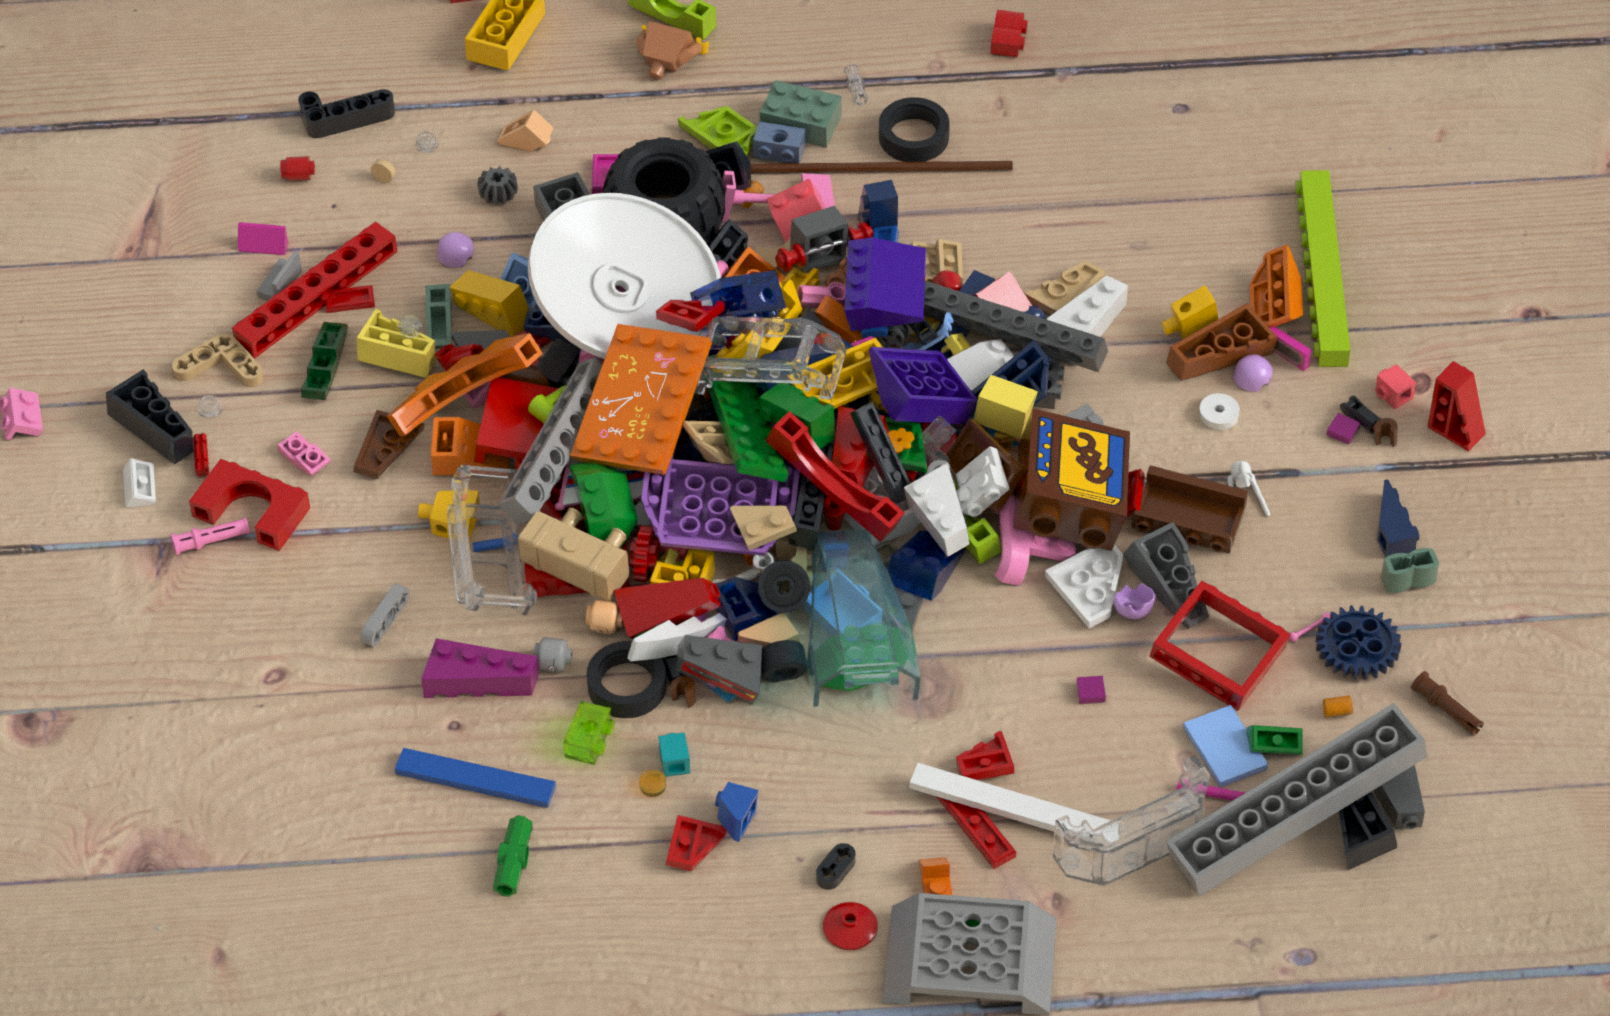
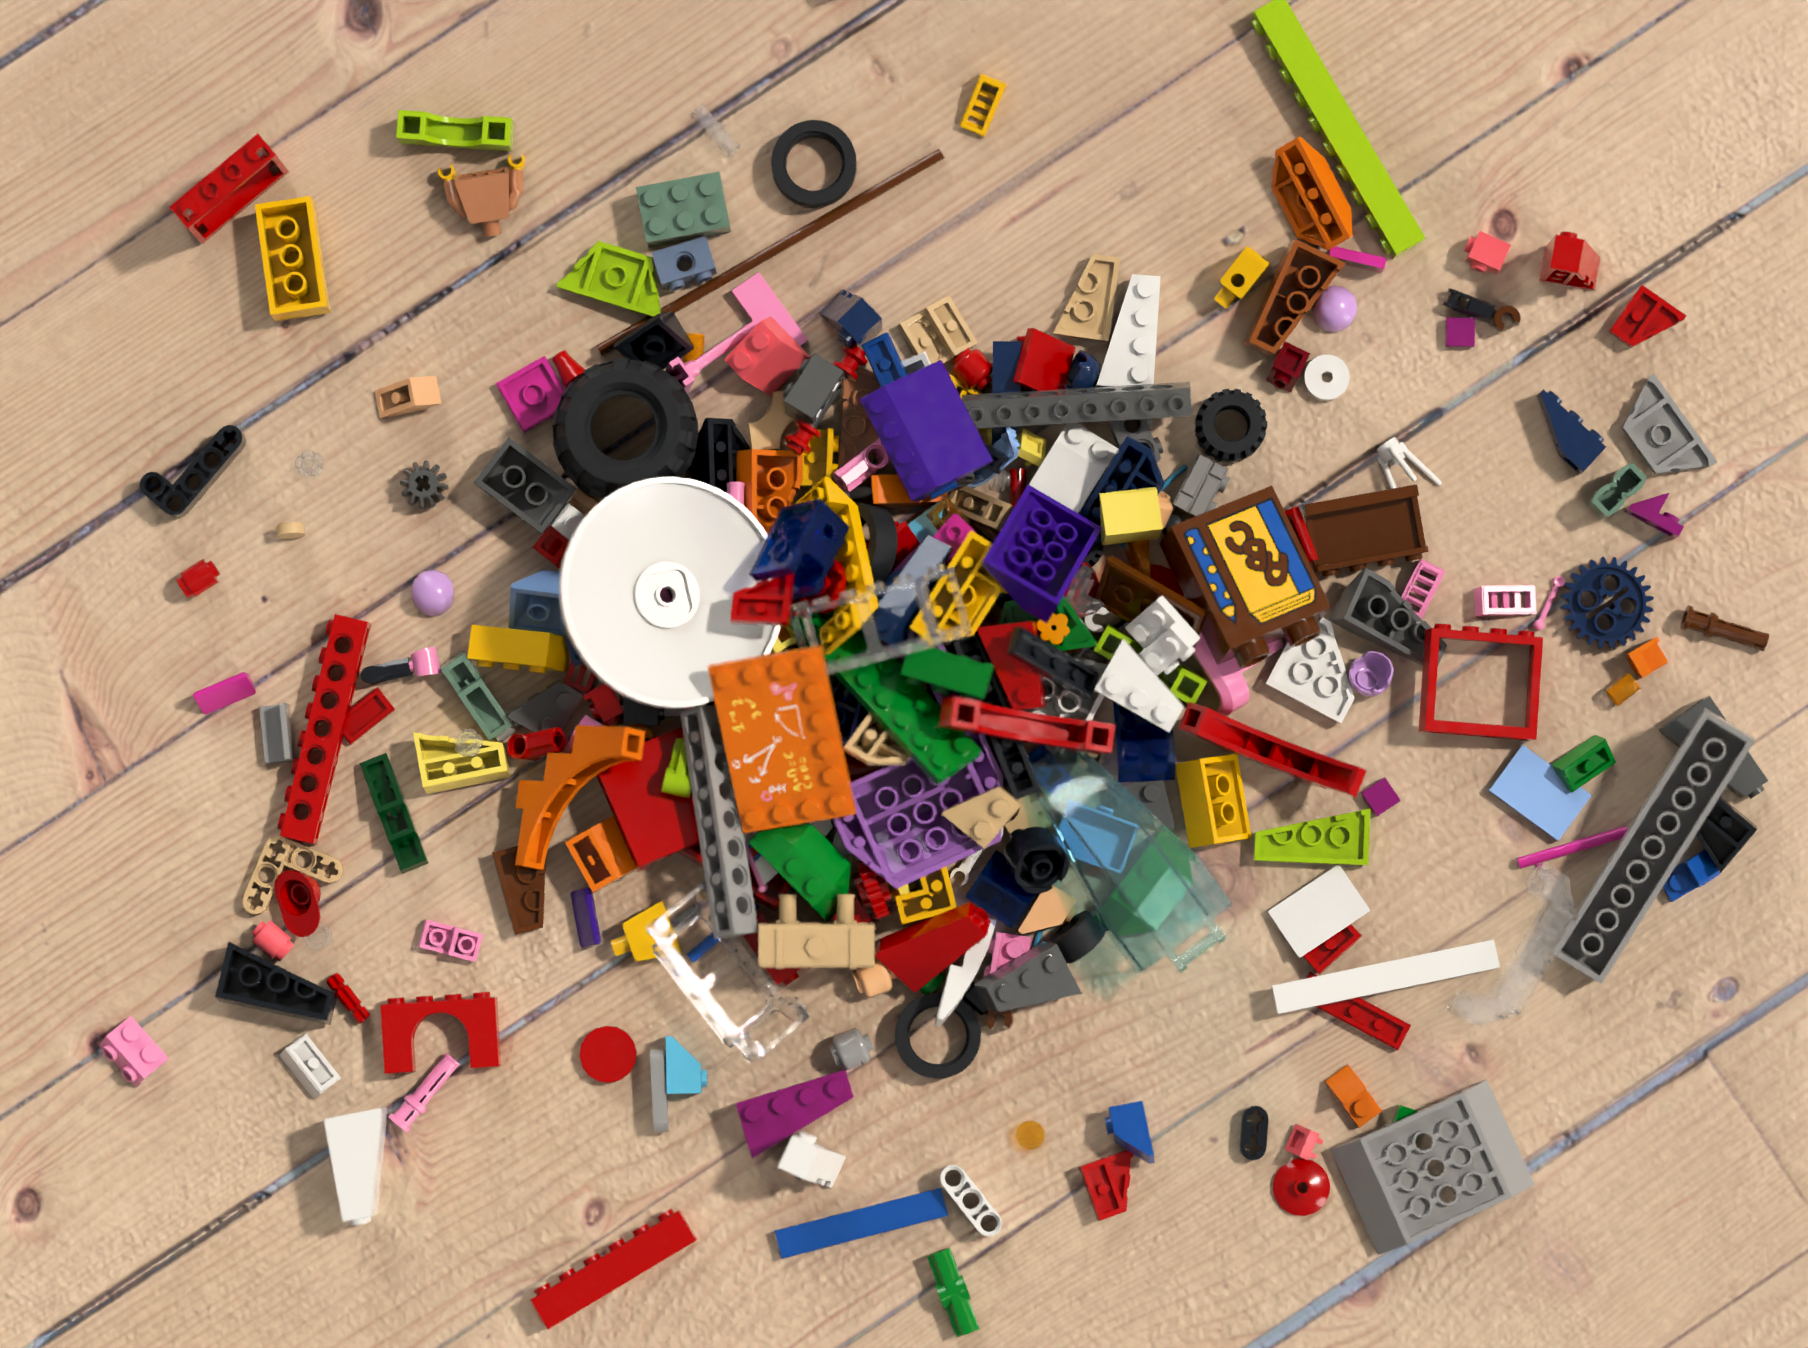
camera: 30 degrees left, 35 degrees up
(126, 544) = (357, 1160): none -> white slope
(176, 392) = (272, 940): none -> coral brick
(214, 373) = (298, 902): none -> red piece
(259, 712) = (613, 1269): none -> red brick
(364, 577) = (608, 1054): none -> red tile
(399, 280) = (422, 663): none -> piece
(411, 609) = (683, 1070): none -> medium azure slope
(416, 485) = (585, 917): none -> dark purple slope
(464, 698) = (811, 1160): none -> white wedge
(573, 789) = (974, 1214): none -> white beam
(588, 733) = (937, 1135): clear neon green brick -> none
(674, 754) = (1034, 1095): teal brick -> none
(871, 888) = (1302, 1142): none -> coral tile
(953, 627) = (1213, 800): none -> yellow slope
(990, 737) = (1319, 911): none -> white sticker
(1018, 609) = (1271, 751): none -> red arch
(1025, 696) = (1323, 841): none -> lime wing
(1070, 135) = (990, 81): none -> yellow slope
(1124, 386) = (1241, 403): none -> black tyre
(1191, 387) = (1287, 367): none -> dark red bracket
(1222, 560) = (1431, 569): none -> bright pink slope
(1271, 597) = (1482, 607): none -> slope
(1323, 858) = (1690, 875): none -> blue slope
(1370, 692) = (1646, 658): none -> orange panel
(1433, 602) = (1648, 512): none -> magenta slope
(1472, 557) = (1664, 433): none -> light grey wing
(1499, 479) = (1644, 318): none -> red wing

